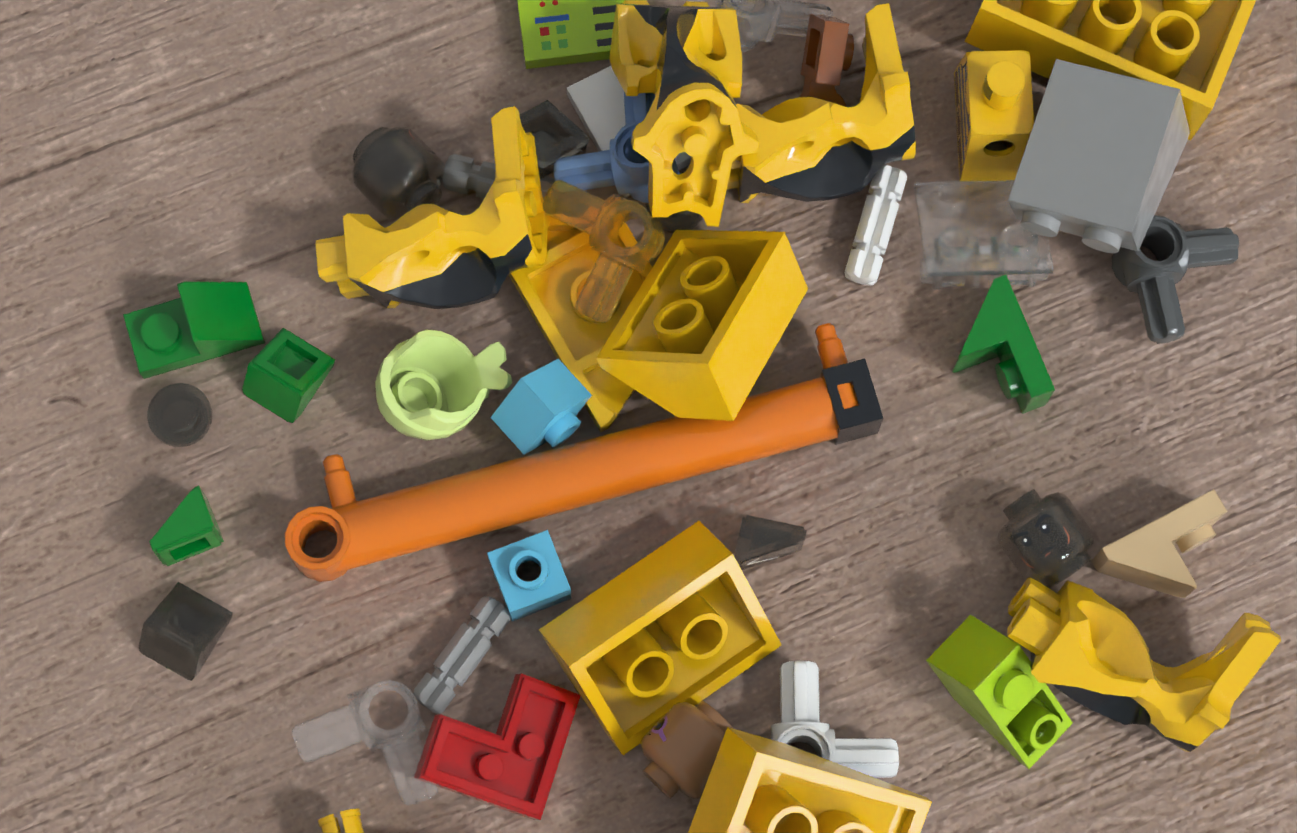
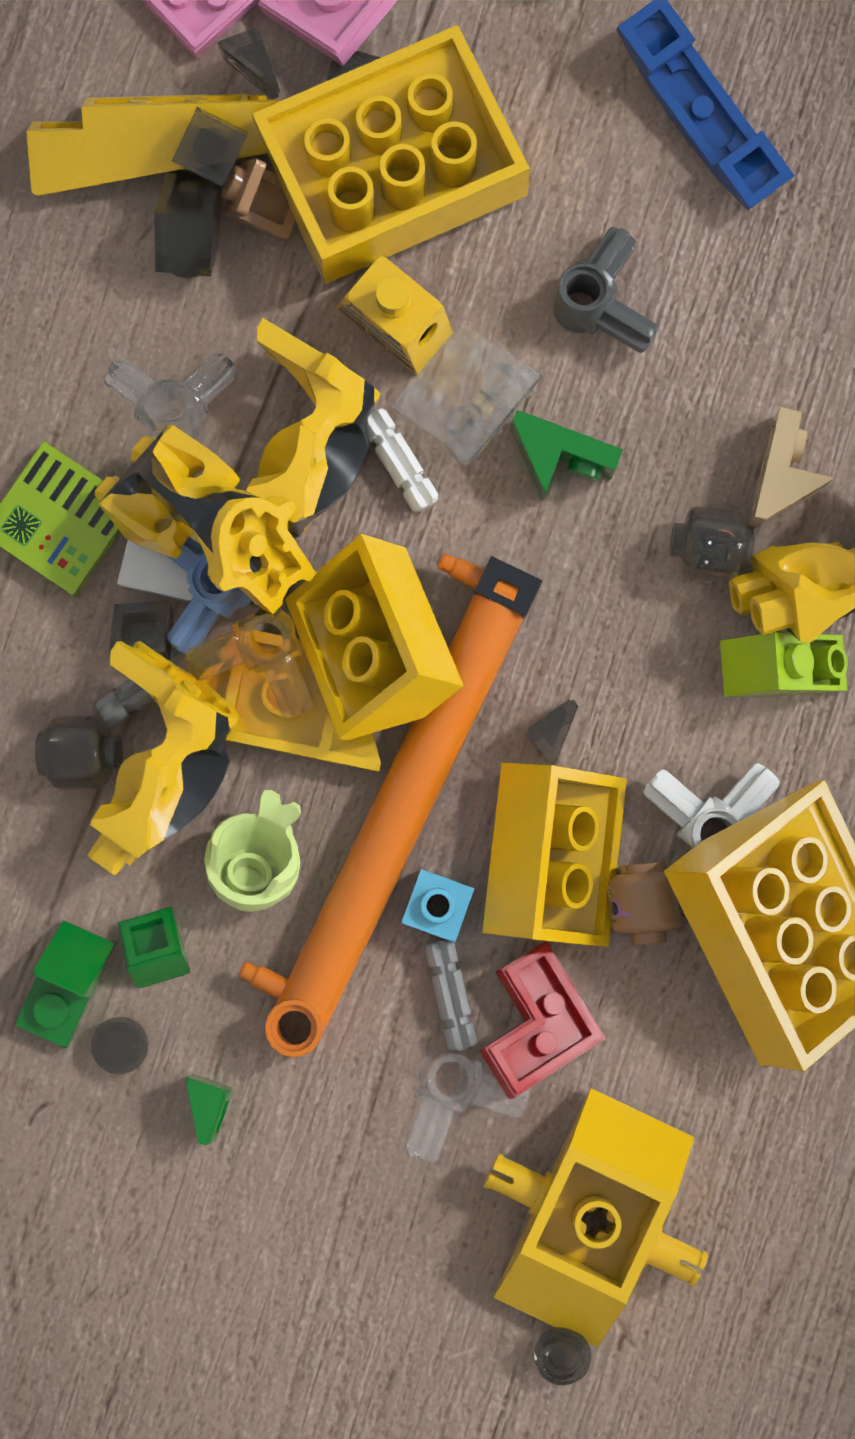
camera: 45 degrees left, 10 degrees up
(183, 631) = (272, 1165): clear smoke slope -> none
(542, 407) = (333, 799): medium azure plate -> none
(825, 56) = (255, 391): dark orange plate -> none
(1099, 157) = (496, 277): light grey slope -> none

